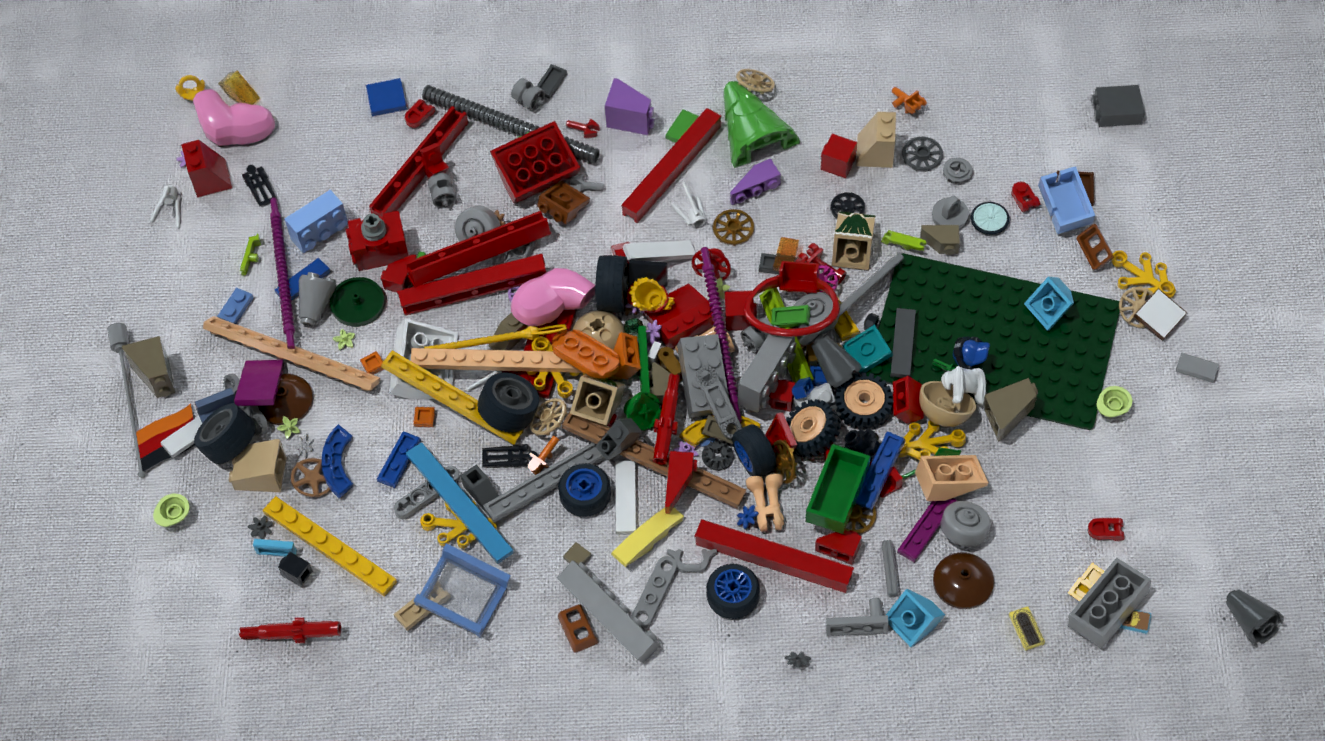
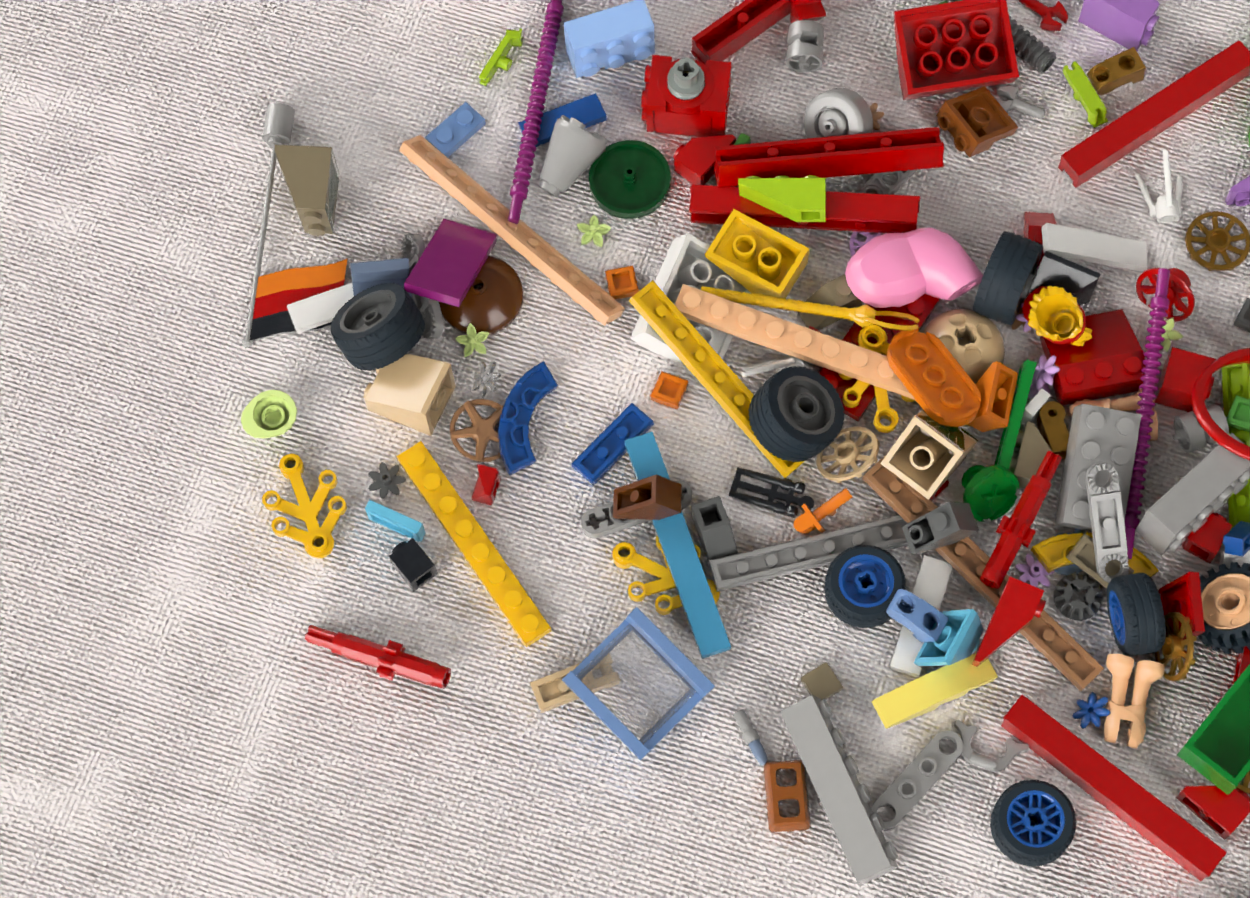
camera: 20 degrees right, 10 degrees up
(214, 560) = (307, 510): none -> yellow plant
(326, 508) = (486, 485): none -> red slope
(432, 480) = (648, 499): none -> reddish brown slope
(453, 319) = (757, 256): none -> yellow slope
(464, 277) = (791, 197): none -> lime slope
(543, 601) = (750, 736): none -> light grey piece
(621, 494) = (917, 616): none -> medium blue leg
(625, 167) = (1086, 94): none -> lime piece
(631, 326) = (1018, 352): clear green tile -> none
(639, 148) = (1117, 71): none -> pearl gold leg
(648, 500) = (955, 642): none -> medium azure slope
(680, 125) = (1191, 55): bright green tile -> none

